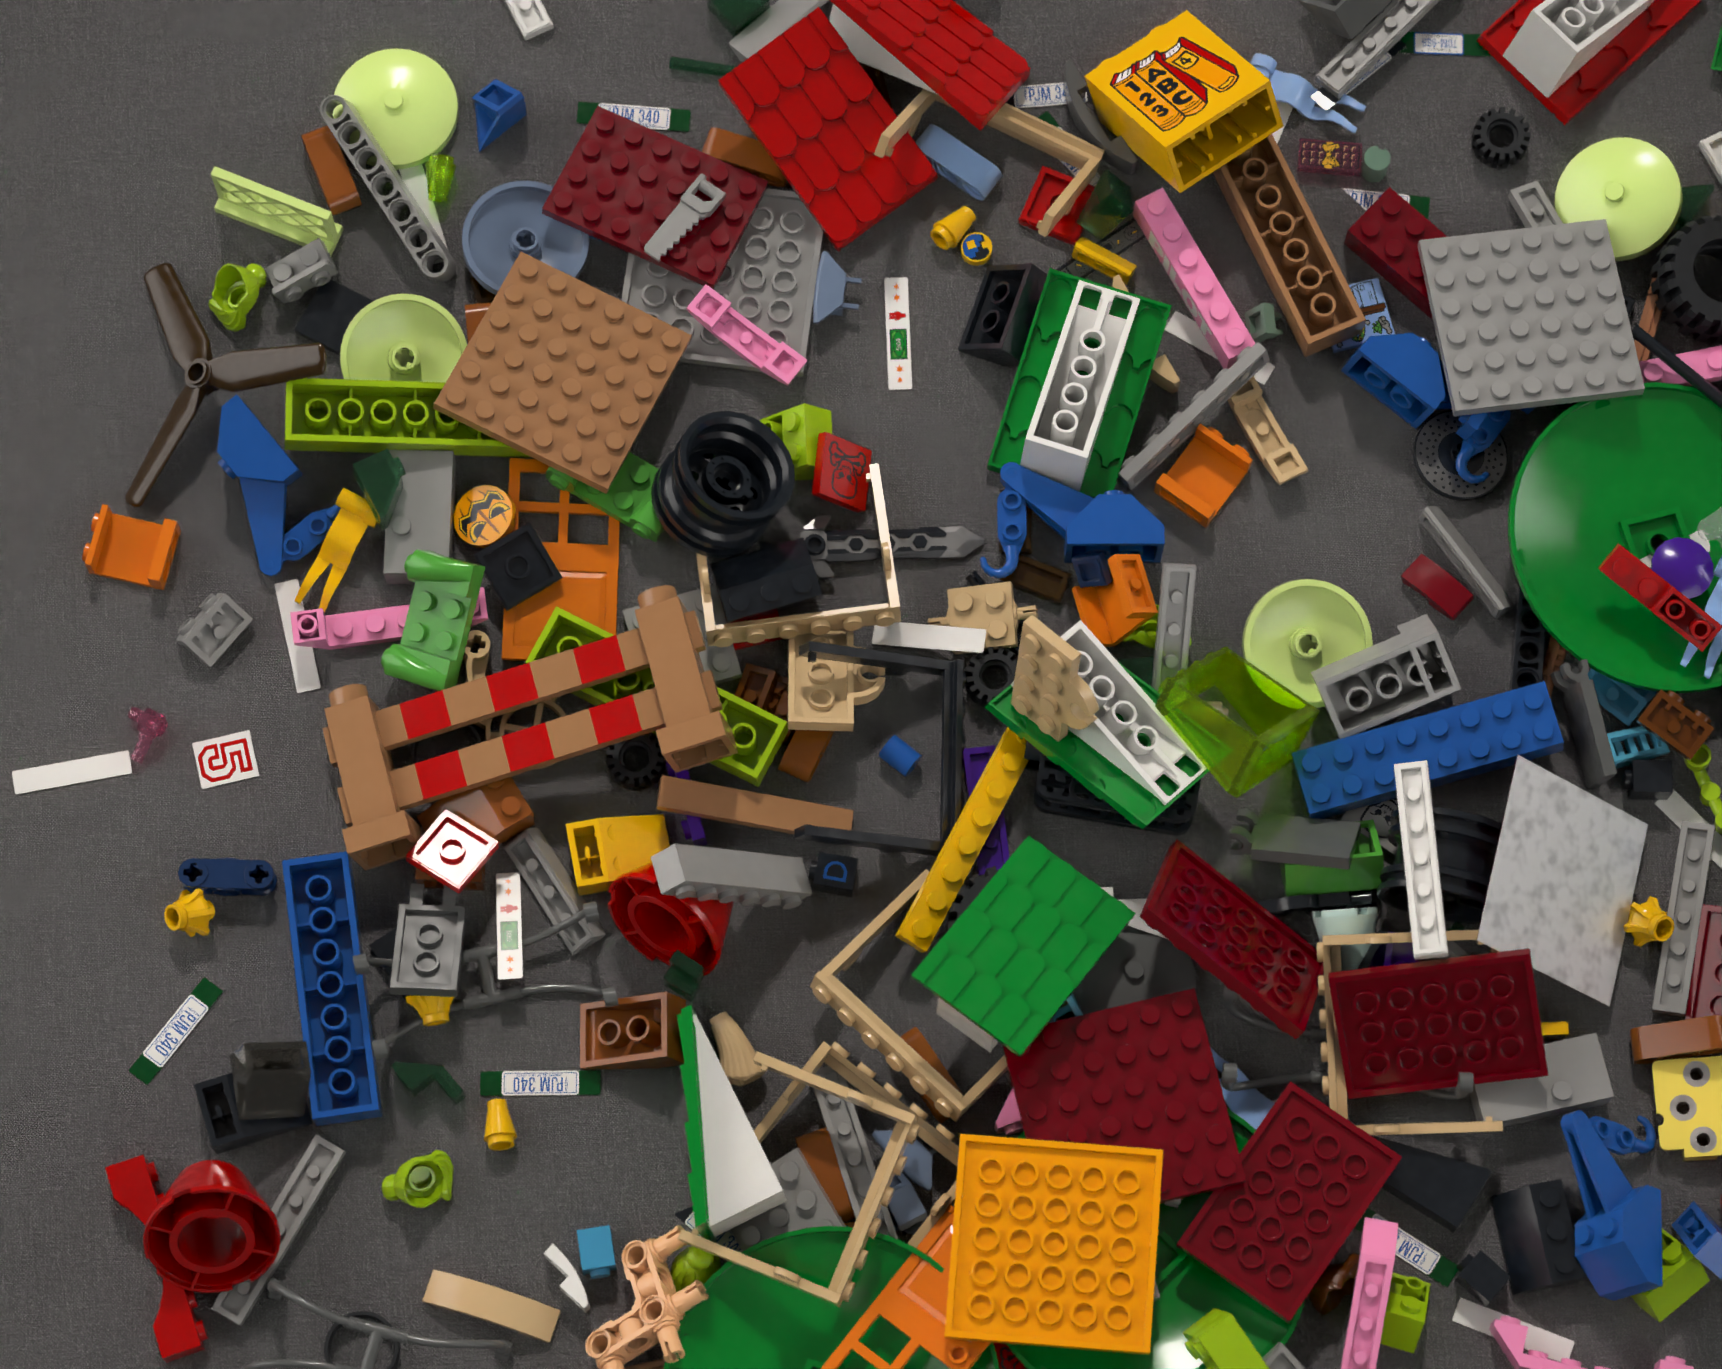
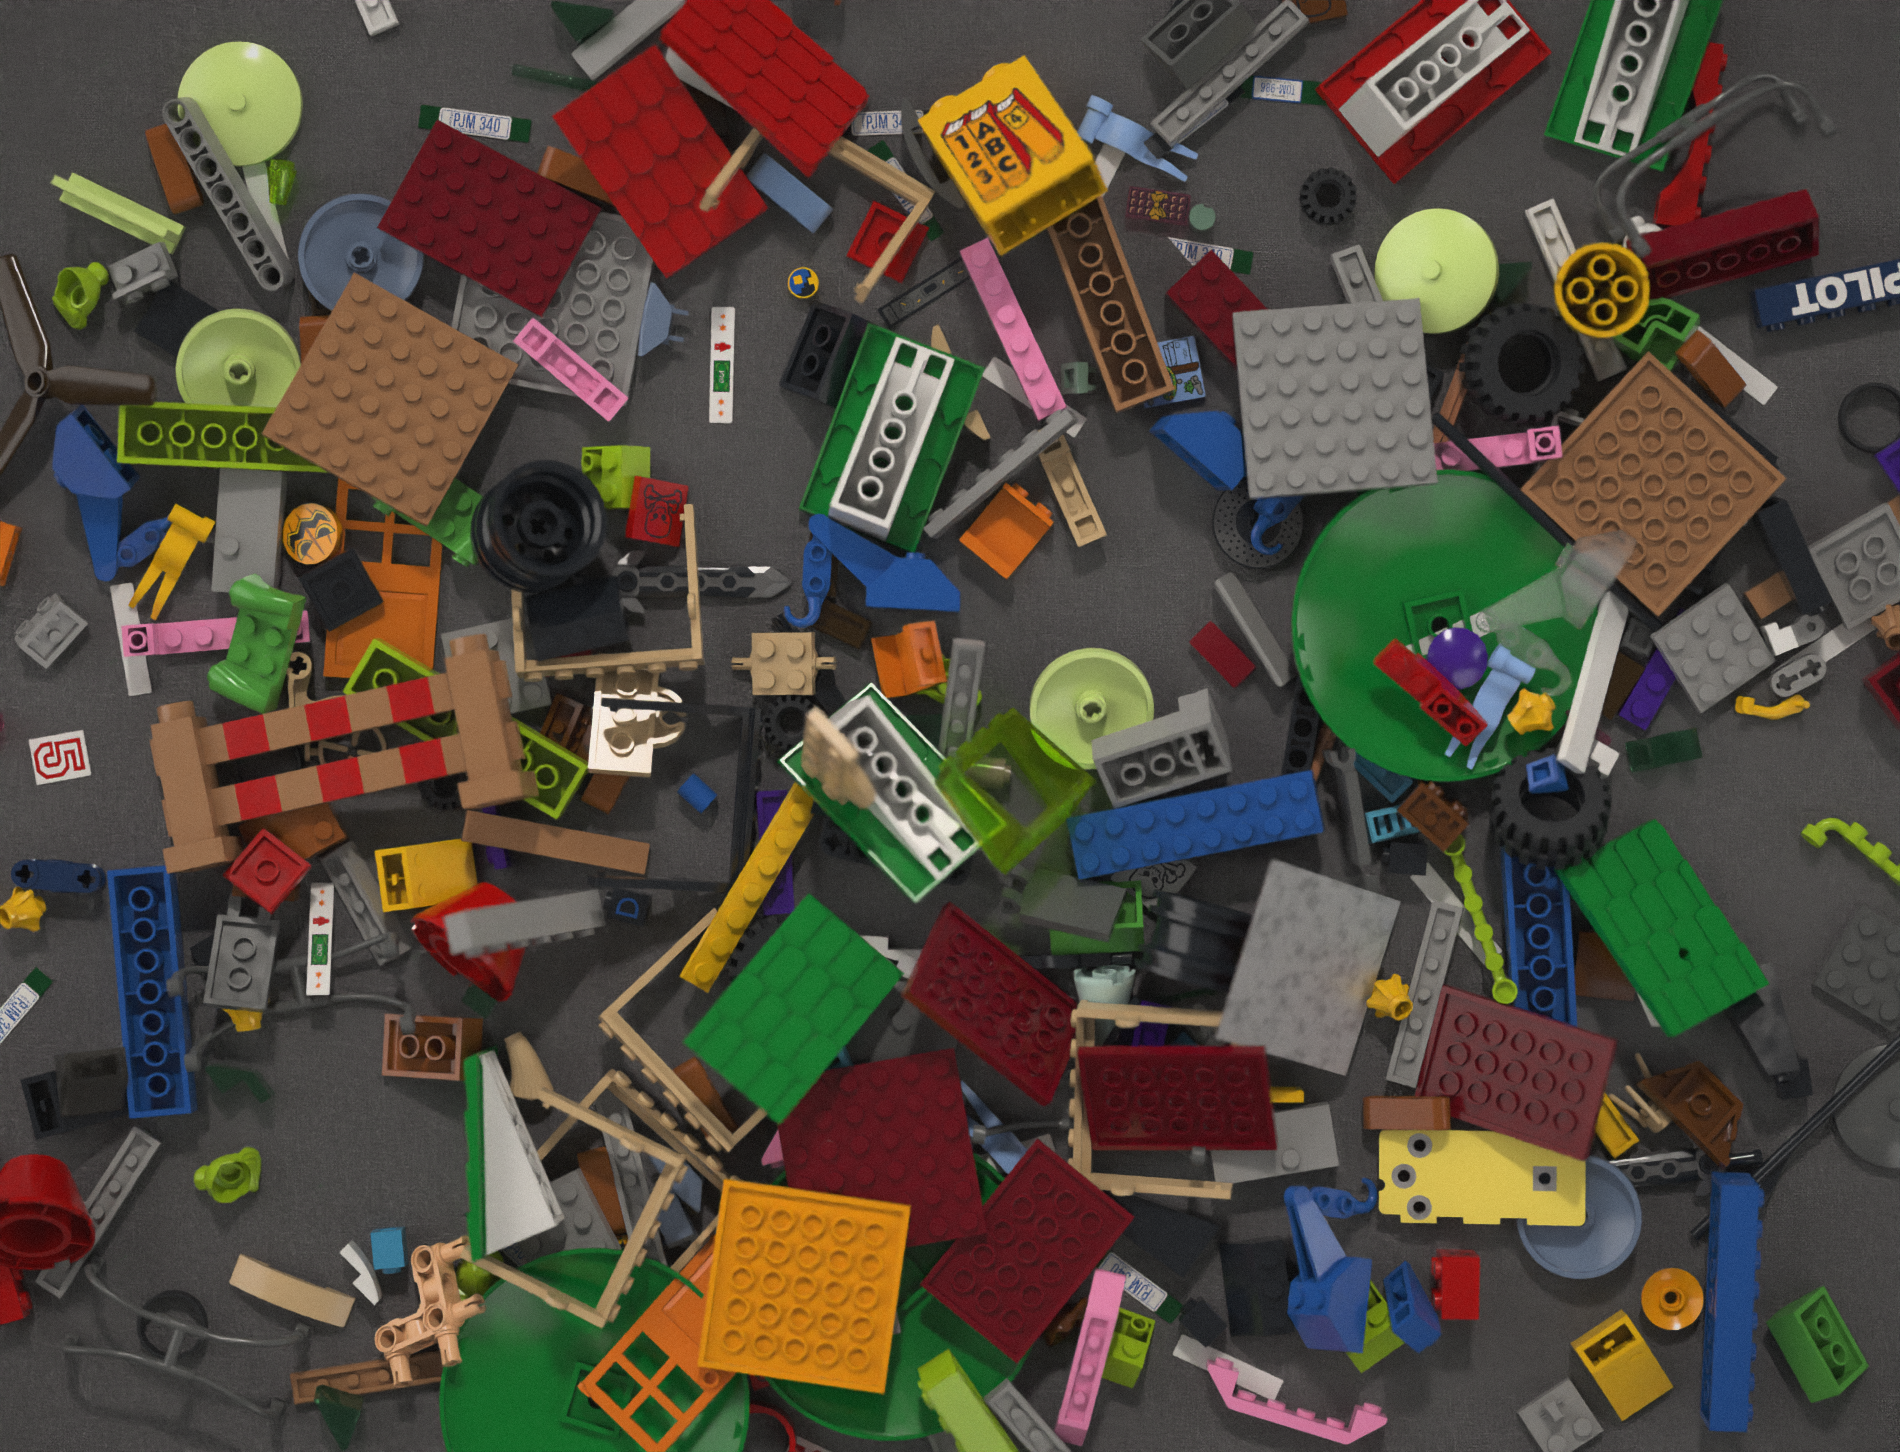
camera: 10 degrees right, 15 degrees up
(380, 483) = (209, 508): clear green slope -> none
(496, 111) = (338, 112): blue slope -> none
(499, 1126) = (304, 1126): yellow cone -> none
(540, 1083) = (345, 1085): sticker -> none
(684, 217) = (515, 246): light grey piece -> none
(930, 637) = (736, 680): white sticker -> none
(951, 229) = (781, 261): yellow cone -> none
(1091, 569) = (889, 624): dark blue tile -> none
(1103, 260) = (927, 301): yellow slope -> none
(1106, 206) = (934, 246): clear green slope -> none
(1421, 860) = (1172, 951): white tile -> none

